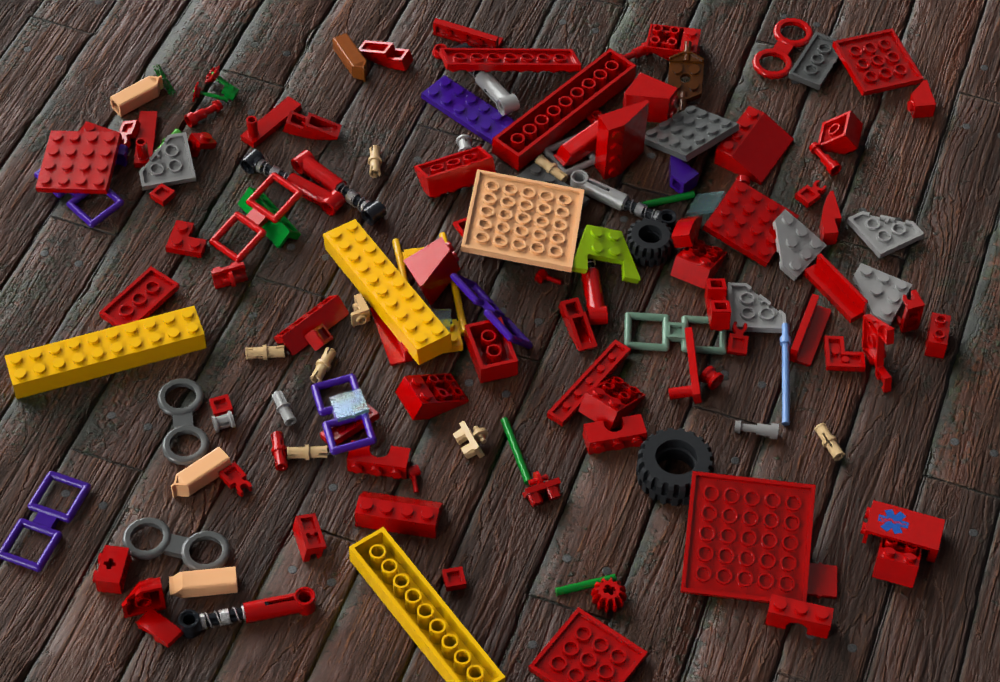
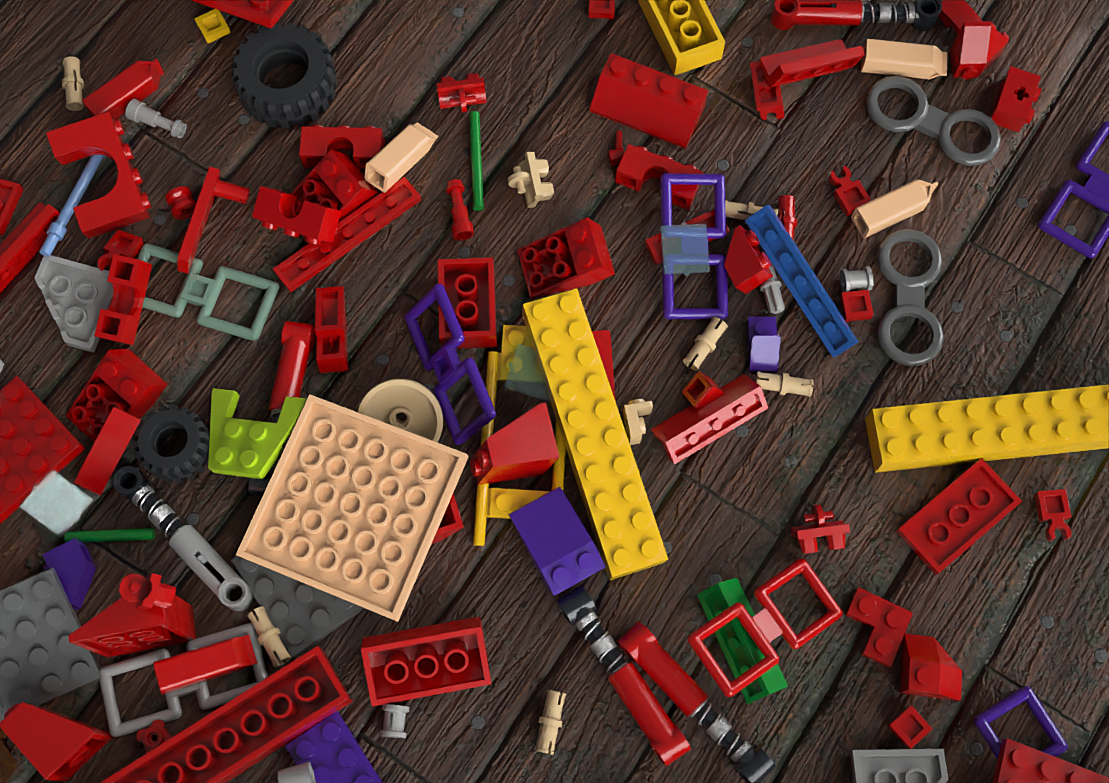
camera: 165 degrees left, 20 degrees up
(77, 313) = (1054, 508): none -> red plate
(152, 221) = (928, 669): none -> red slope
(263, 408) = (801, 281): none -> blue plate
(278, 554) = (809, 62): none -> red panel
(283, 375) = (763, 344): none -> dark purple slope
(303, 410) = (745, 262): none -> red slope
(393, 233) = (556, 541): none -> dark purple slope
(511, 401) = (462, 228): none -> red piece
(512, 277) = (409, 397): none -> tan dish
(569, 432) = (399, 156): none -> light nougat piece
(611, 113) = (146, 591): none -> red hips
(638, 377) = (278, 210): none -> red arch
(781, 394) = (125, 202): none -> red arch
(789, 439) = (133, 83): none -> red piece

